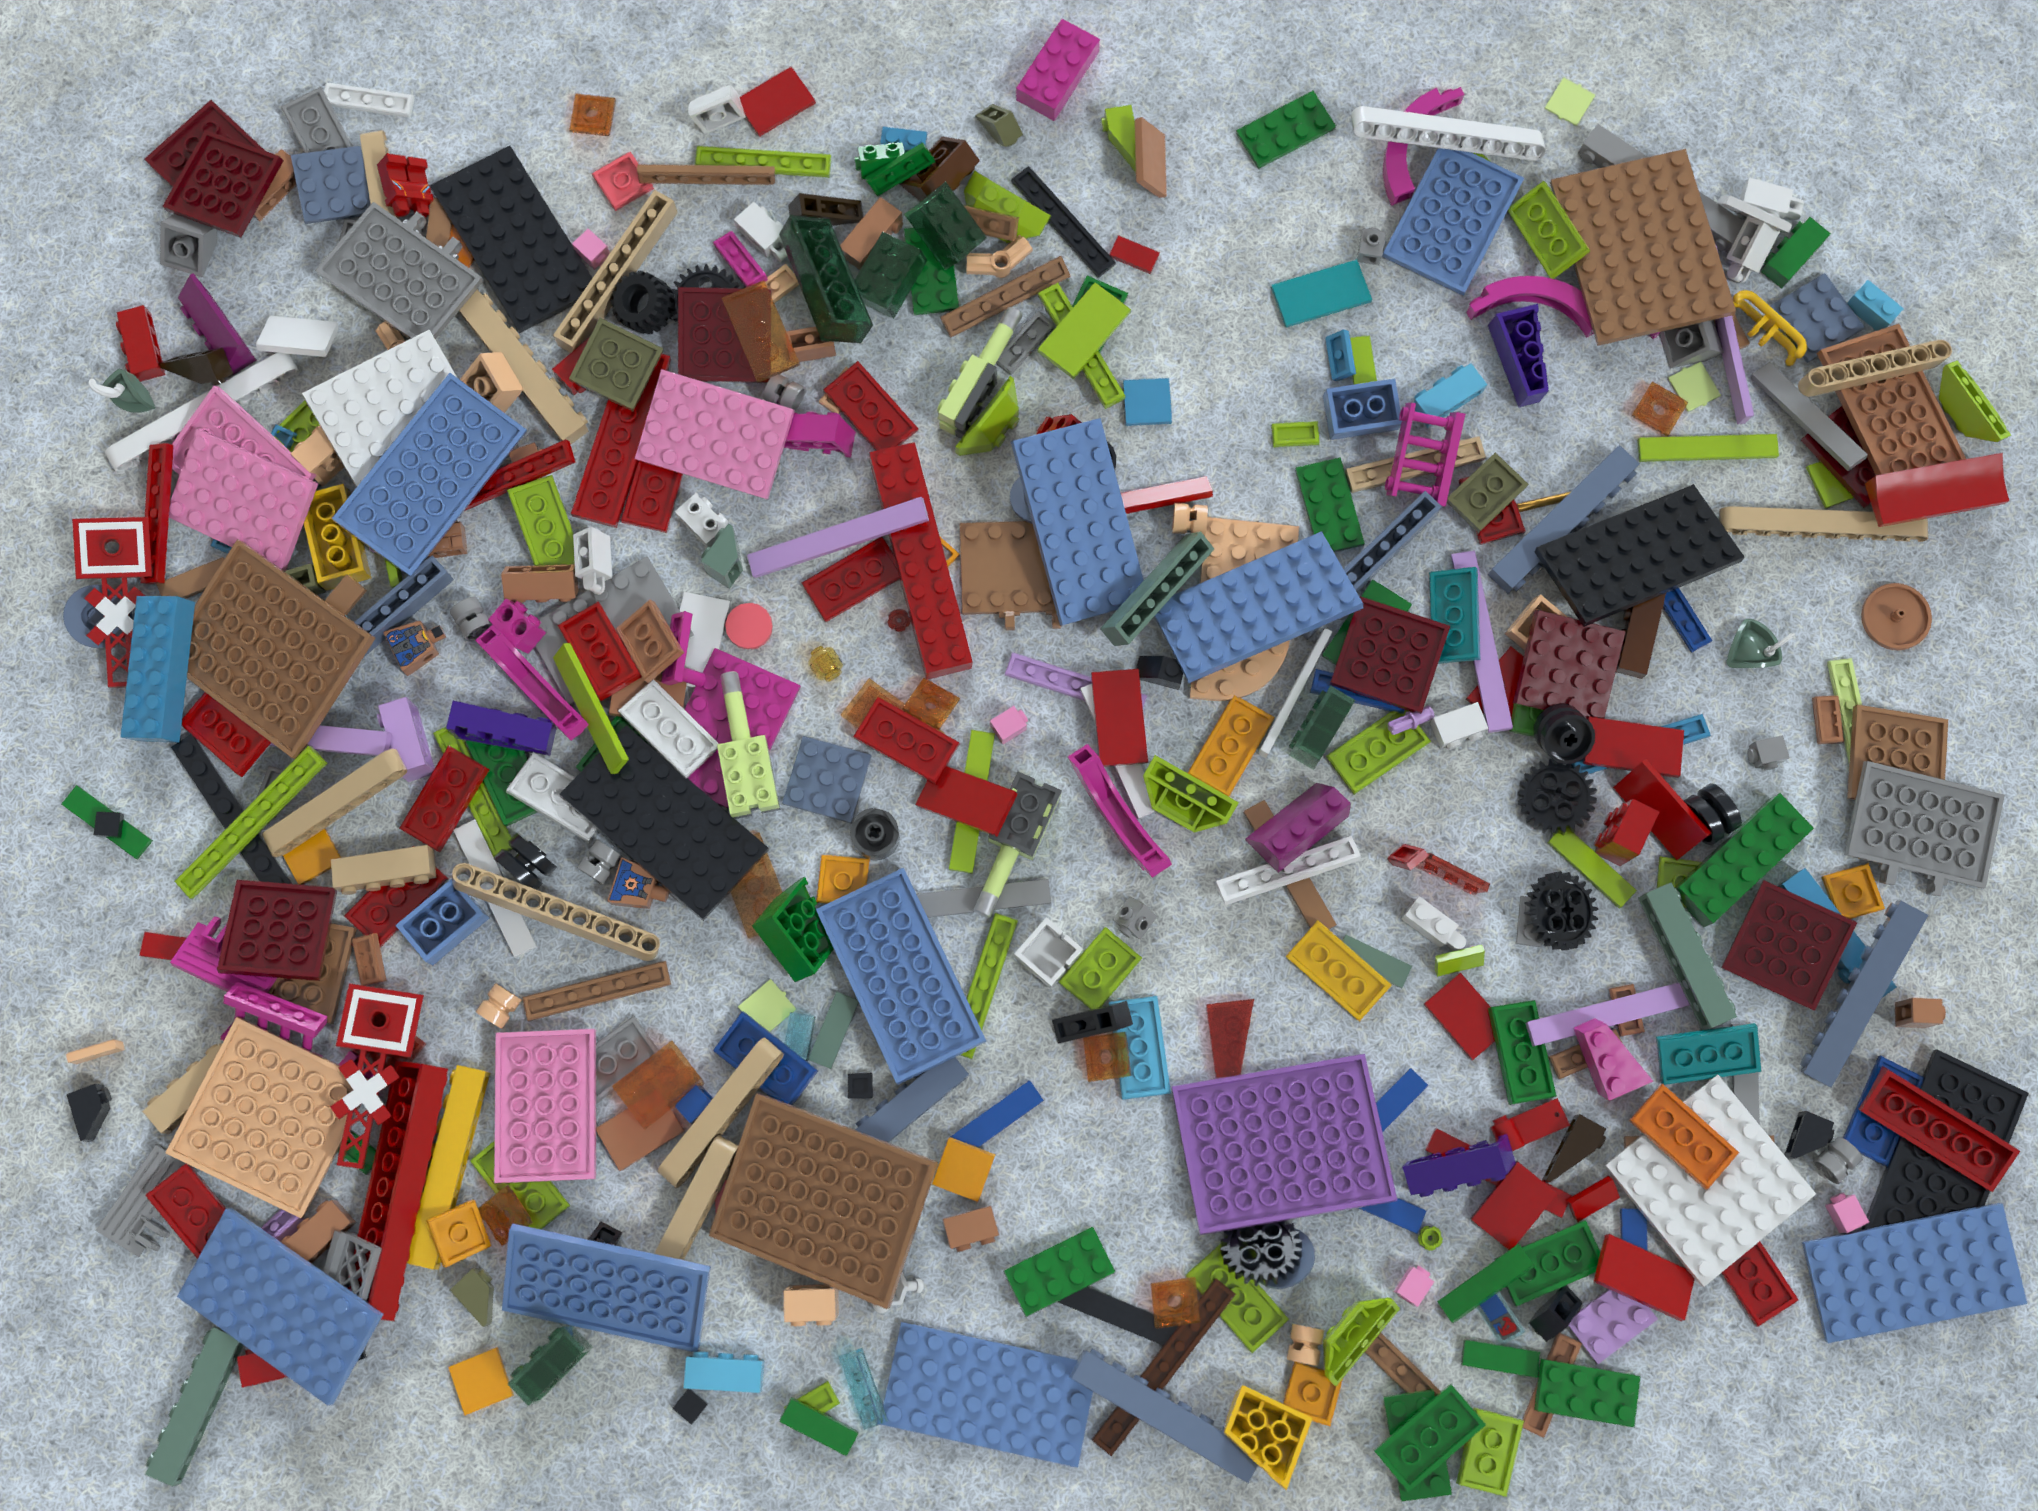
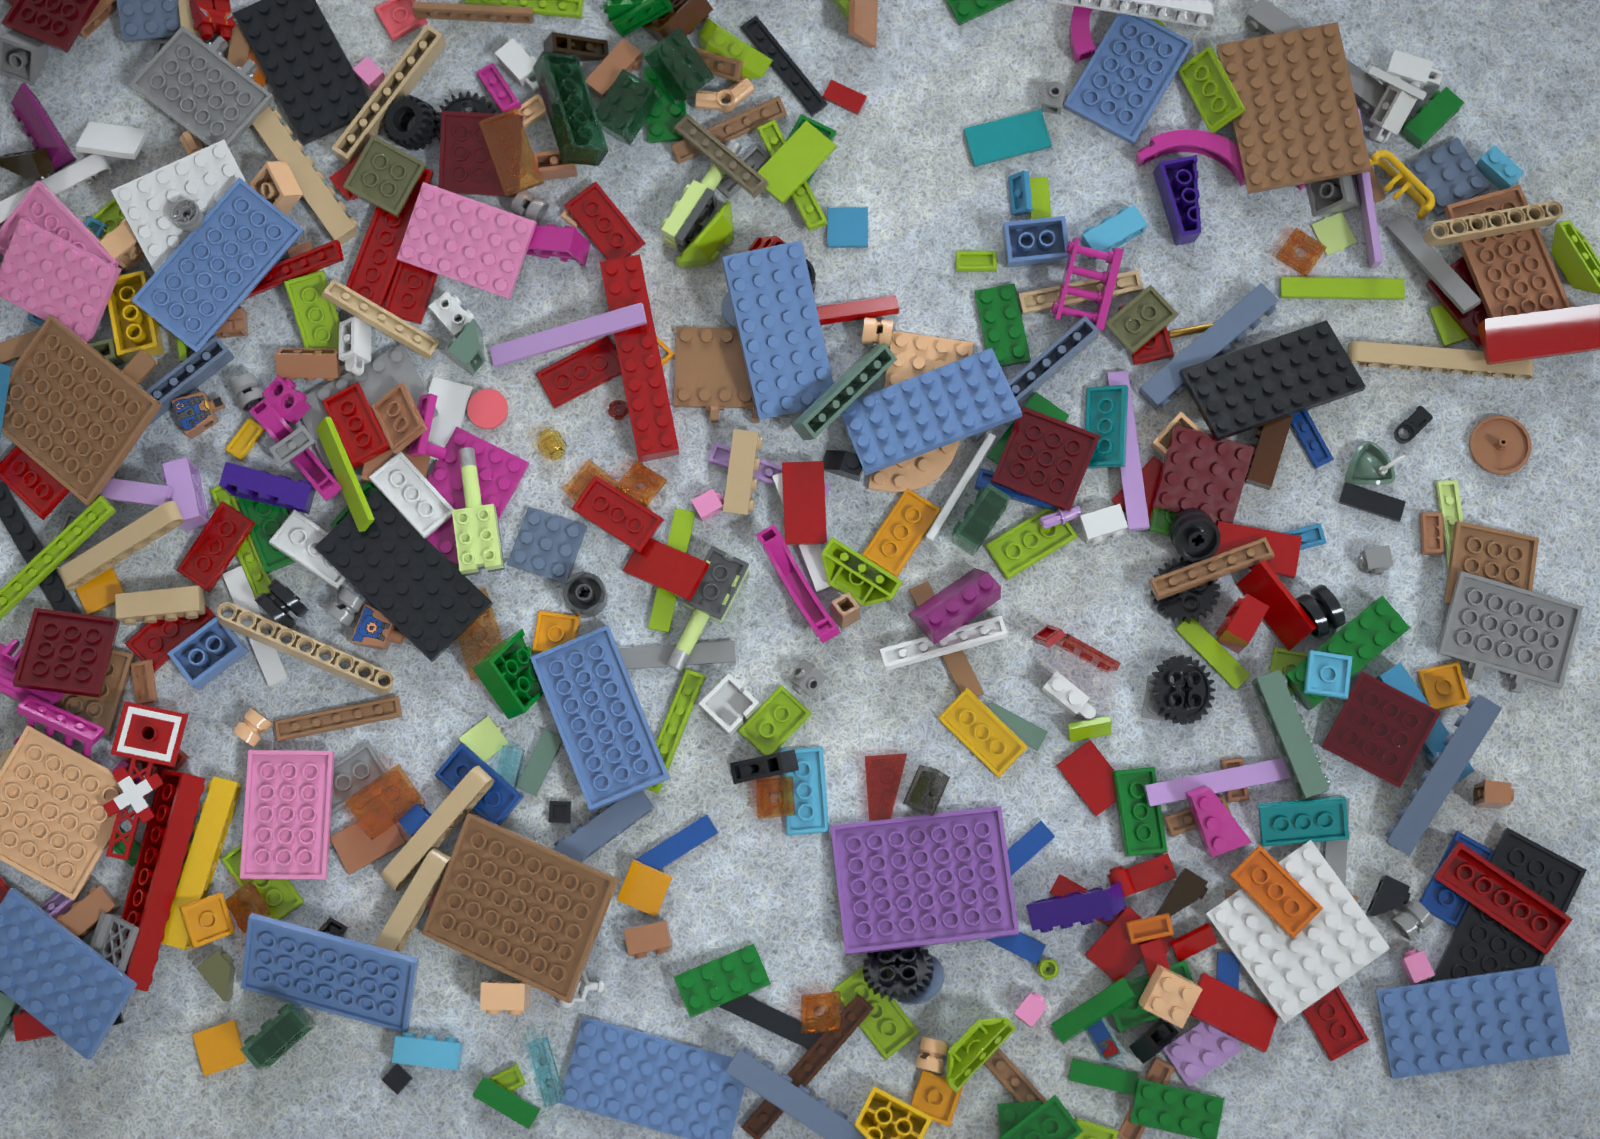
camera: 10 degrees right, 0 degrees up
(392, 409) = (187, 207): none -> light grey wheel
(471, 673) = (245, 439): none -> yellow tile
(527, 678) = (292, 445): none -> light grey plate
(620, 528) = (380, 319): none -> tan plate
(1000, 326) = (721, 156): none -> dark tan tile
(1045, 685) = (741, 472): none -> tan brick
(1173, 838) = (844, 610): none -> medium nougat brick
(1279, 1040) = (926, 790): none -> clear smoke brick
(1545, 1186) = (1149, 928): none -> orange tile
(1553, 1224) = (1153, 954): none -> red tile
(1573, 1263) = (1170, 996): none -> light nougat brick
(1586, 771) = (1211, 568): none -> medium nougat tile
(1726, 886) = (1328, 674): none -> medium azure tile
(1758, 687) = (1372, 502): none -> black tile
(1798, 598) = (1413, 424): none -> black piece

